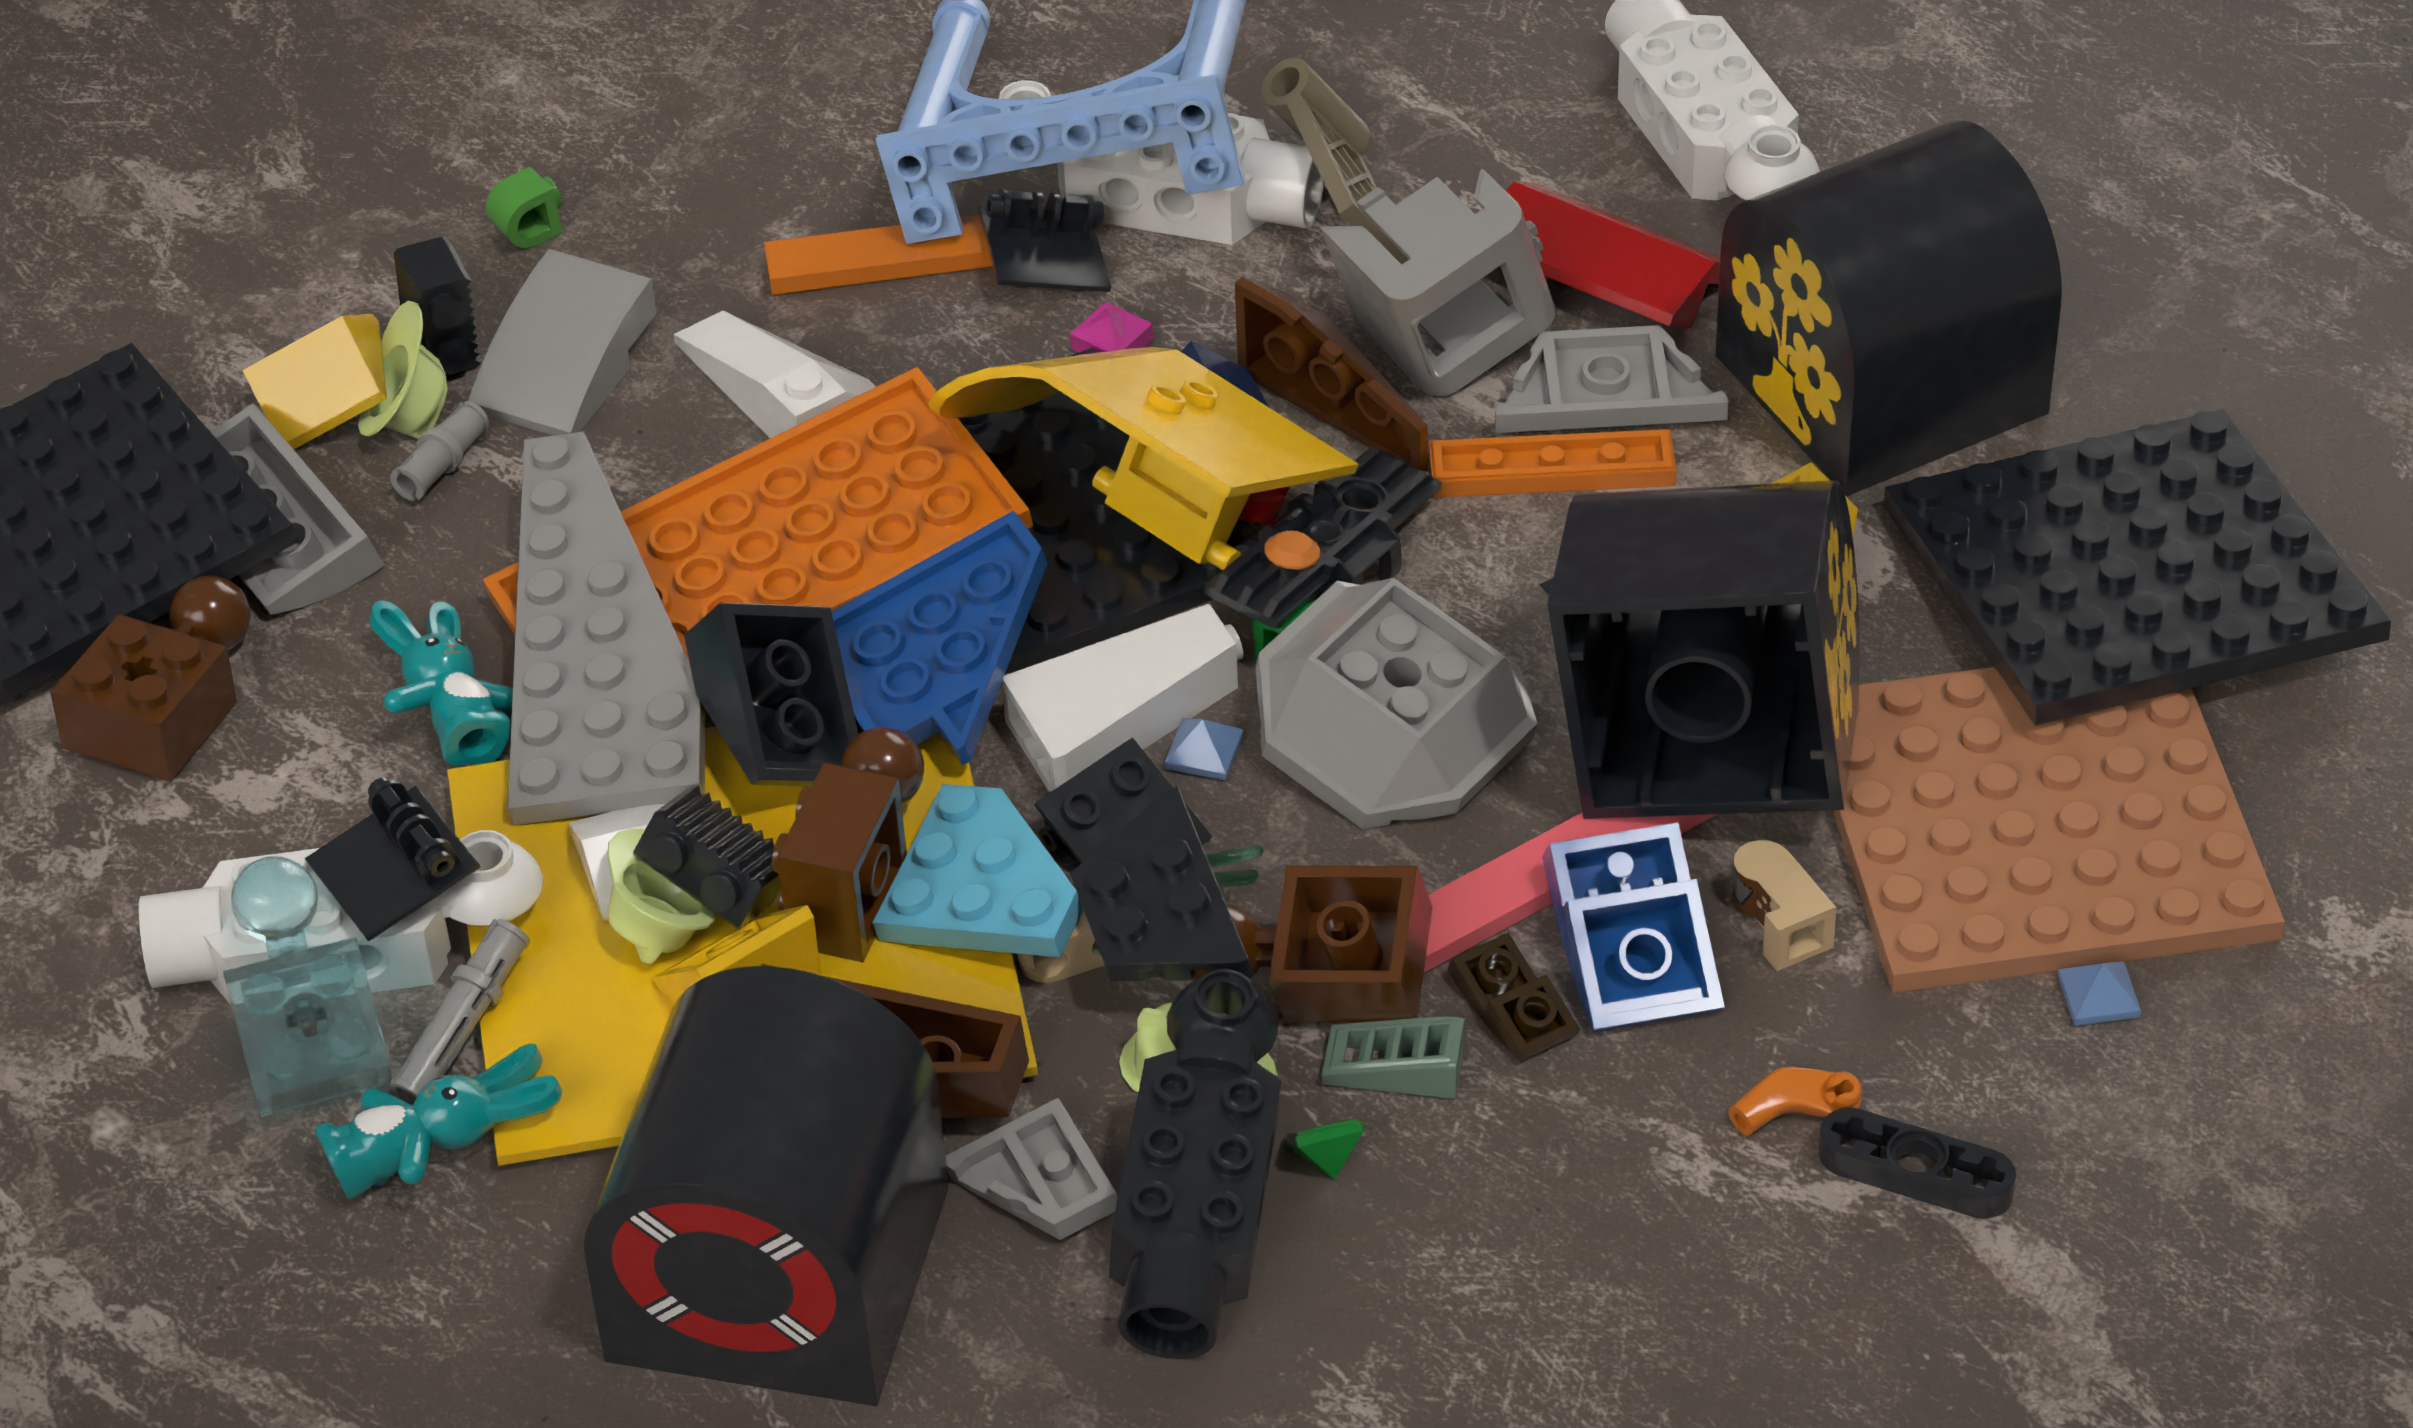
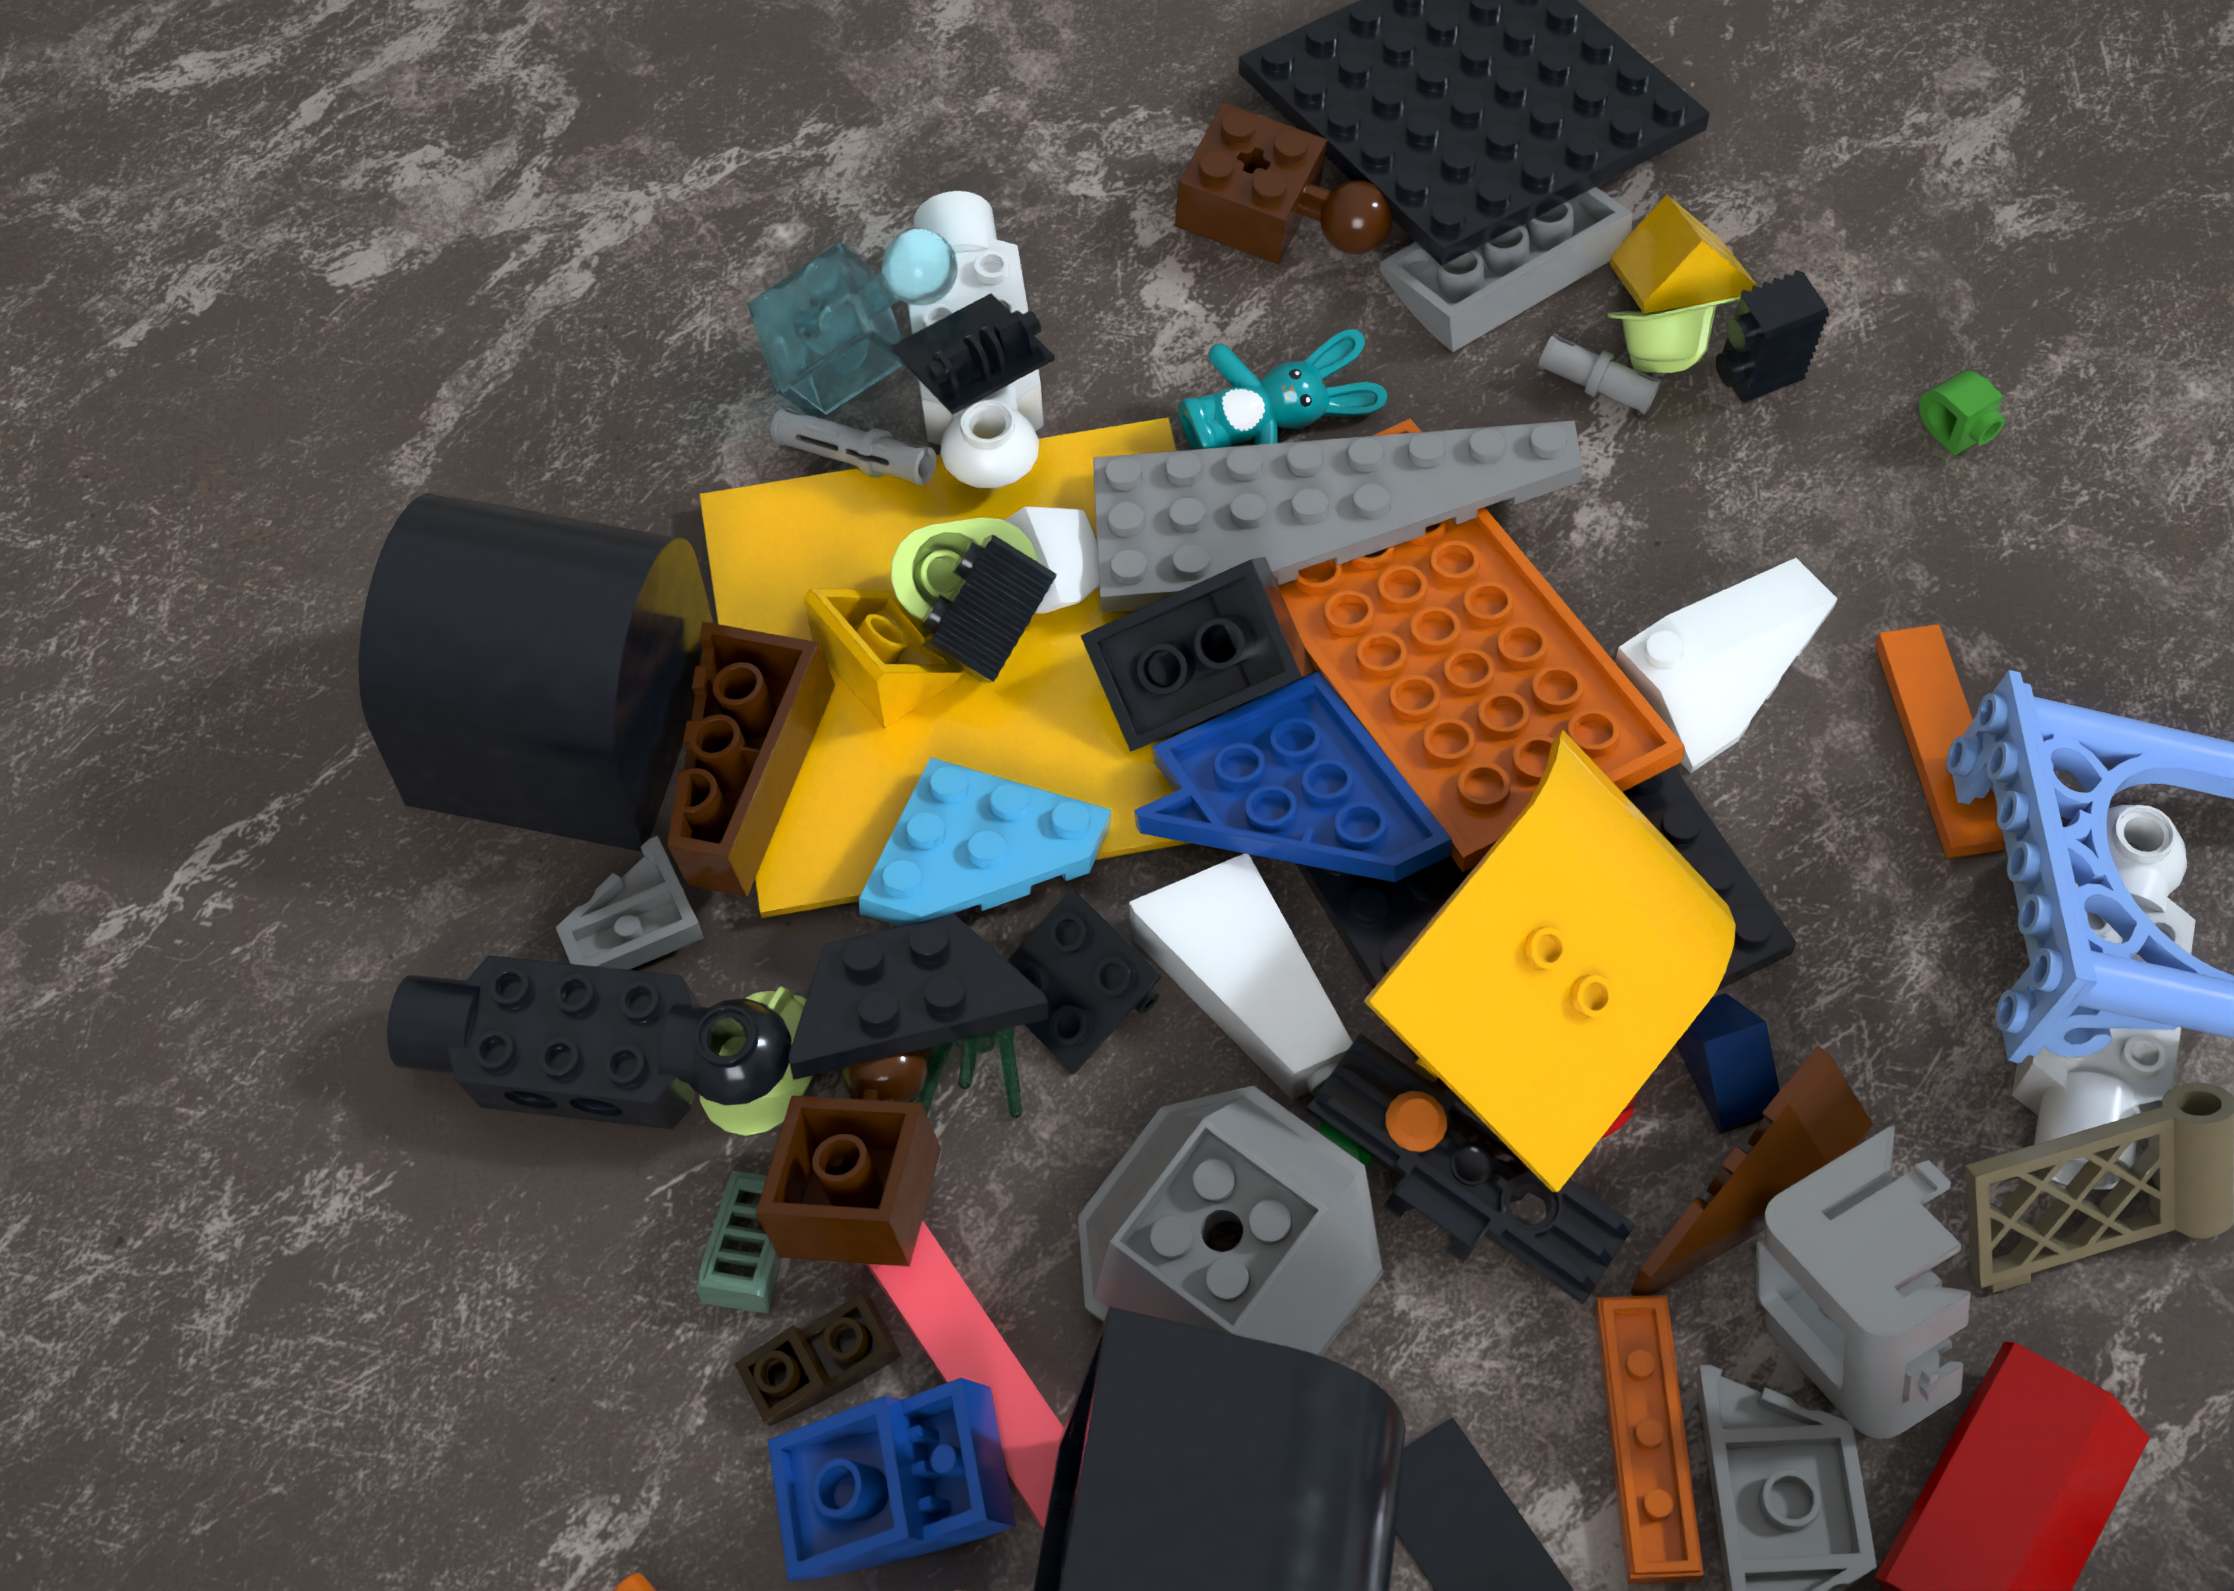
camera: 90 degrees right, 15 degrees up
(446, 1114) = (732, 440): teal animal -> none
(563, 344) = (1752, 457): light grey slope -> none
(850, 839) = (994, 718): reddish brown brick -> none
(1047, 245) = (1951, 889): black hinge -> none
(1111, 330) = (1827, 965): dark pink tile -> none
(1204, 748) = (1194, 1063): medium blue slope -> none
(1326, 1145) = (642, 1167): green slope -> none

